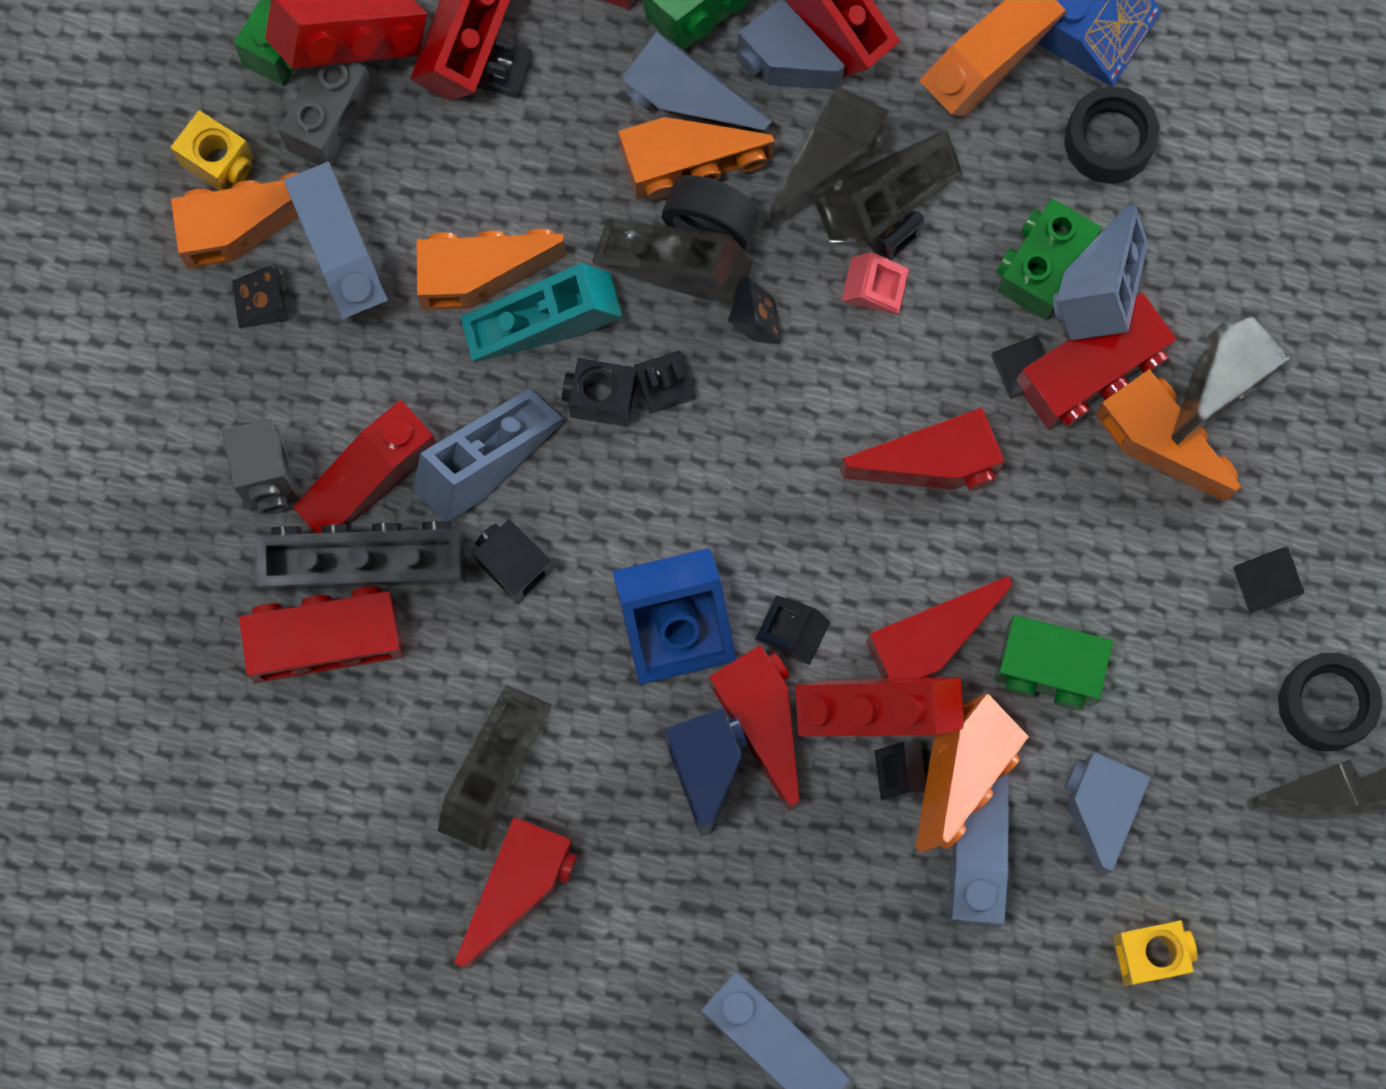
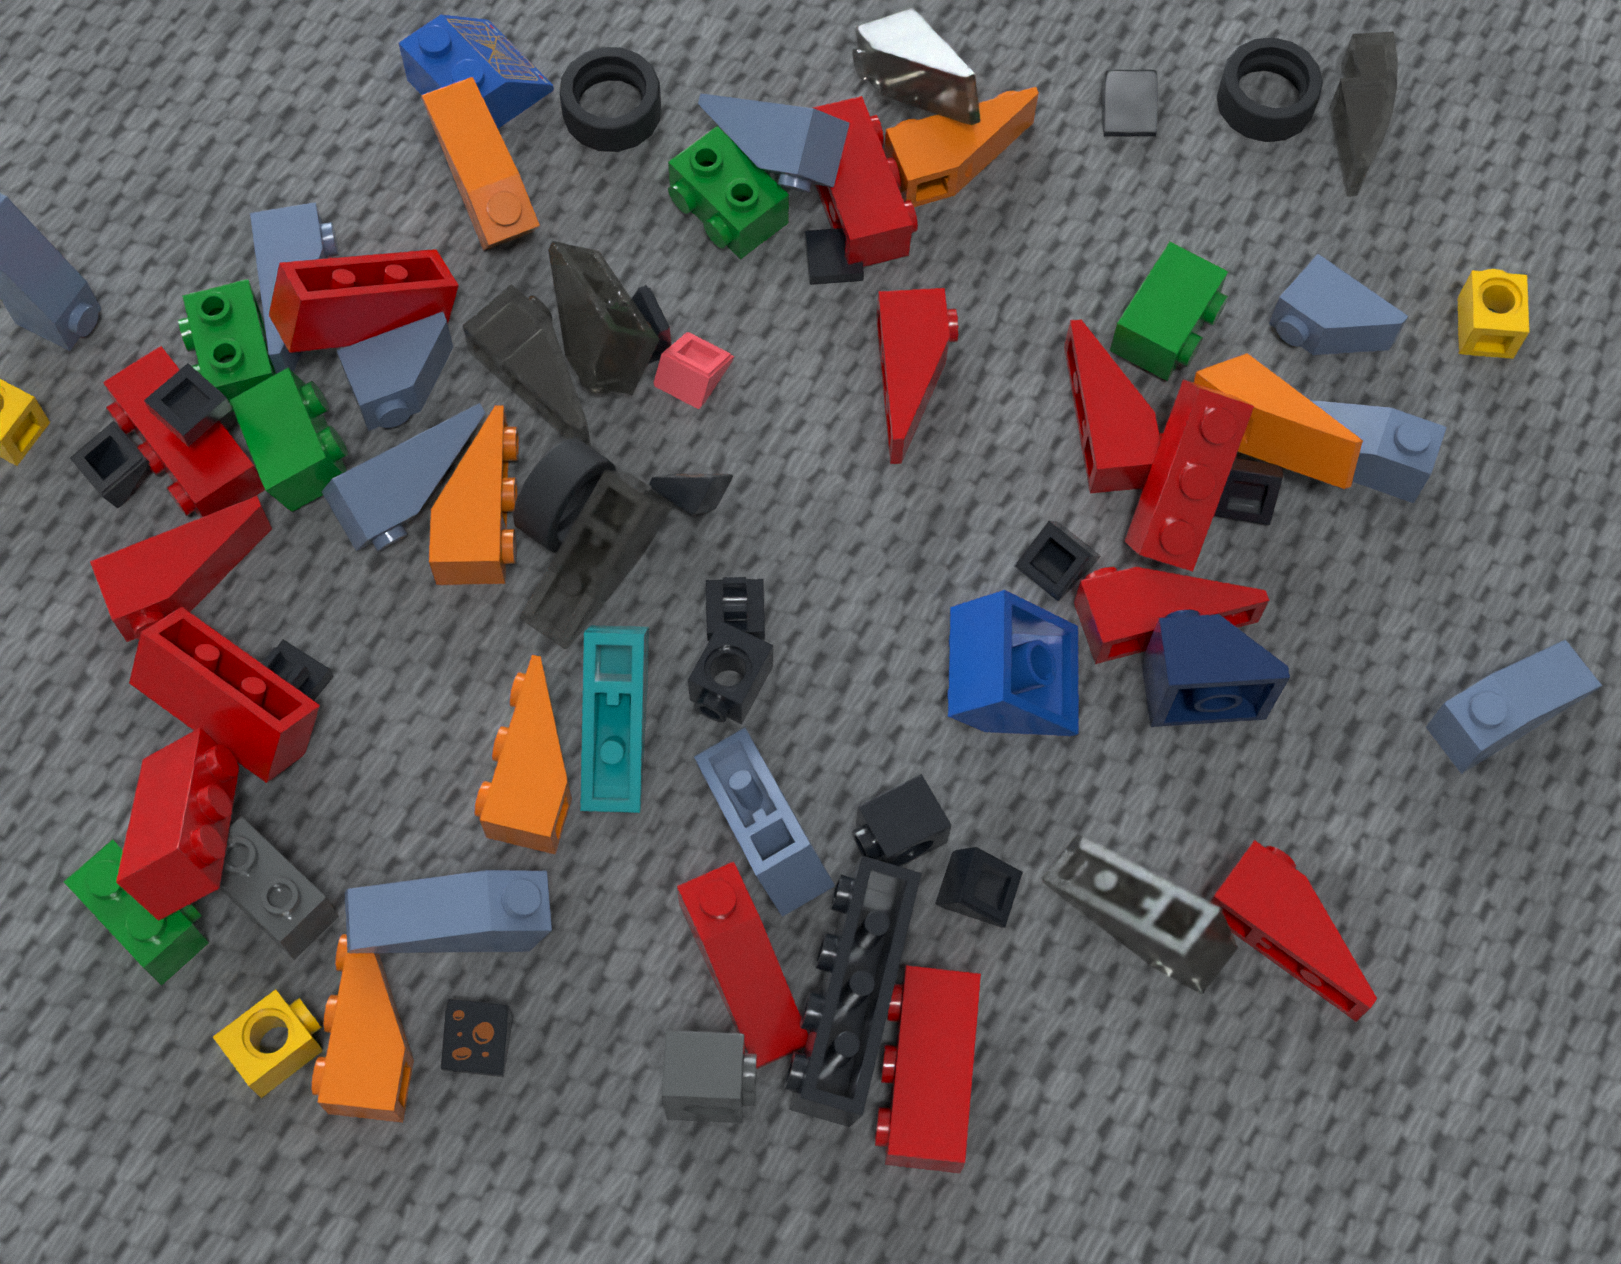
camera: 75 degrees left, 10 degrees down
(484, 638) = (979, 886): none -> black slope

